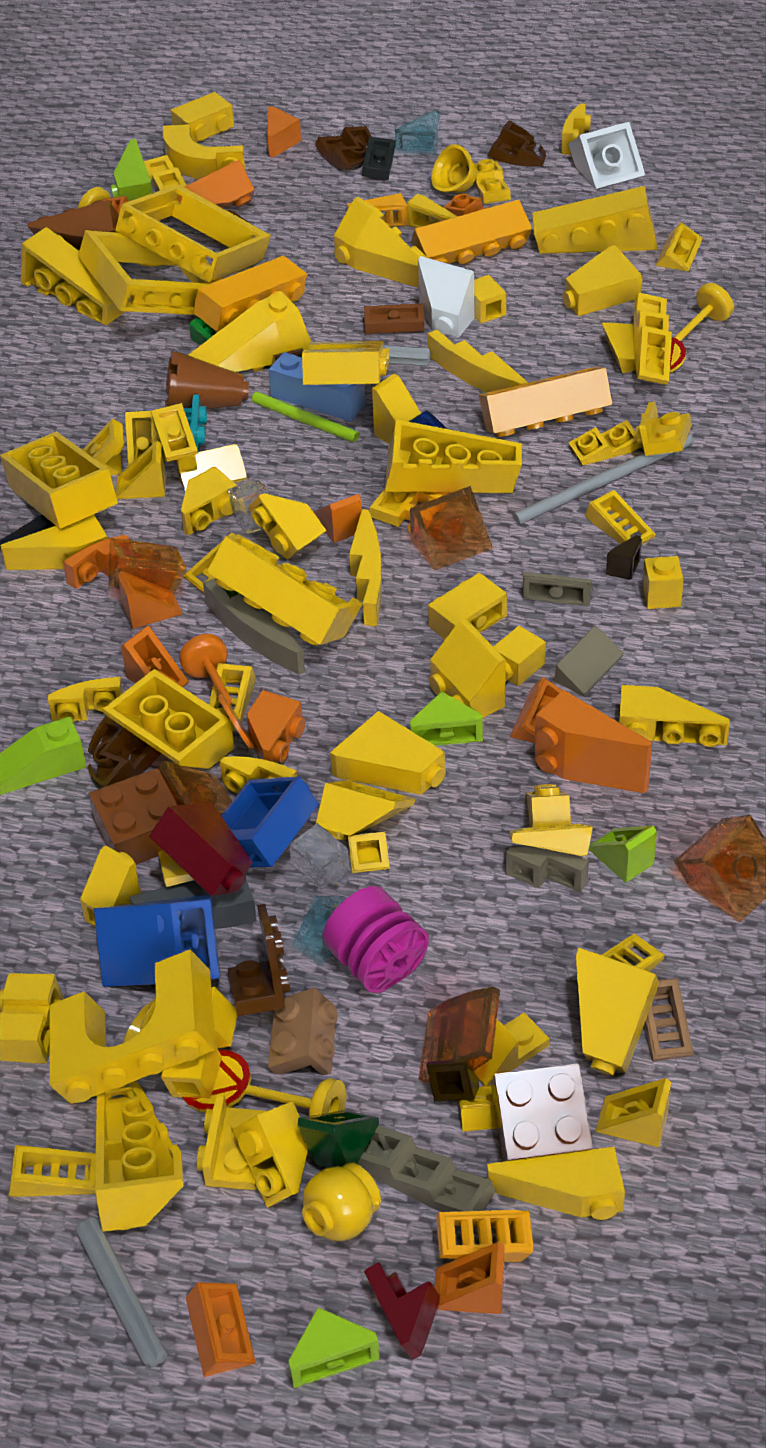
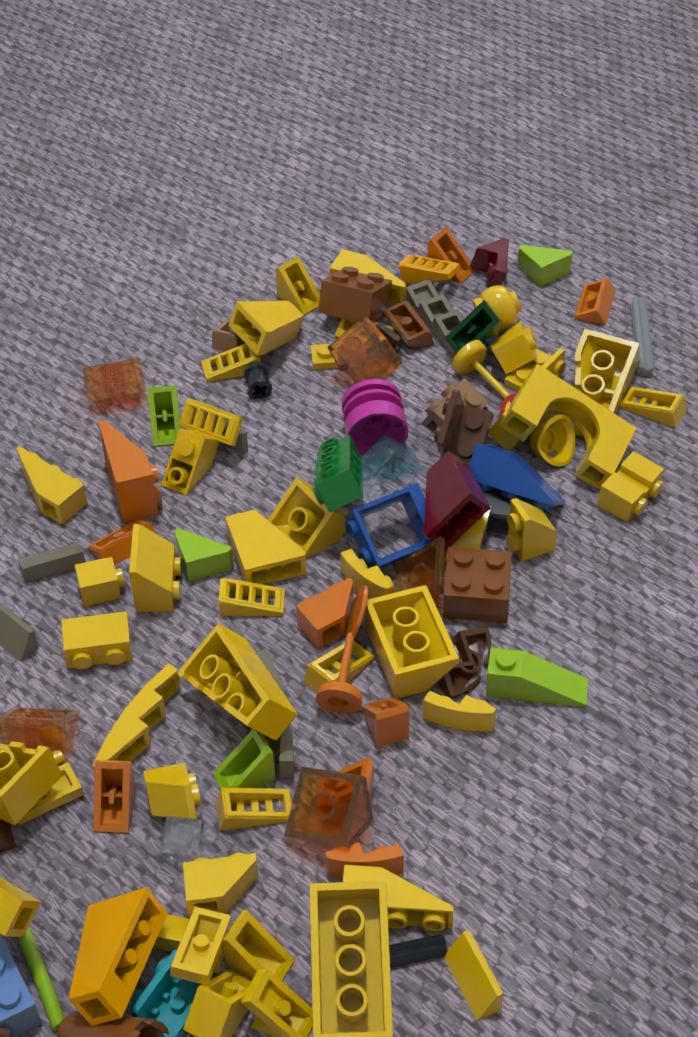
camera: 150 degrees left, 0 degrees up
(235, 406) = (113, 953): none -> light orange slope
(351, 823) = (338, 473): none -> green brick
(369, 700) = (240, 607): none -> yellow slope
(449, 1133) = (409, 325): none -> dark orange slope
(563, 949) = (257, 378): none -> black bush

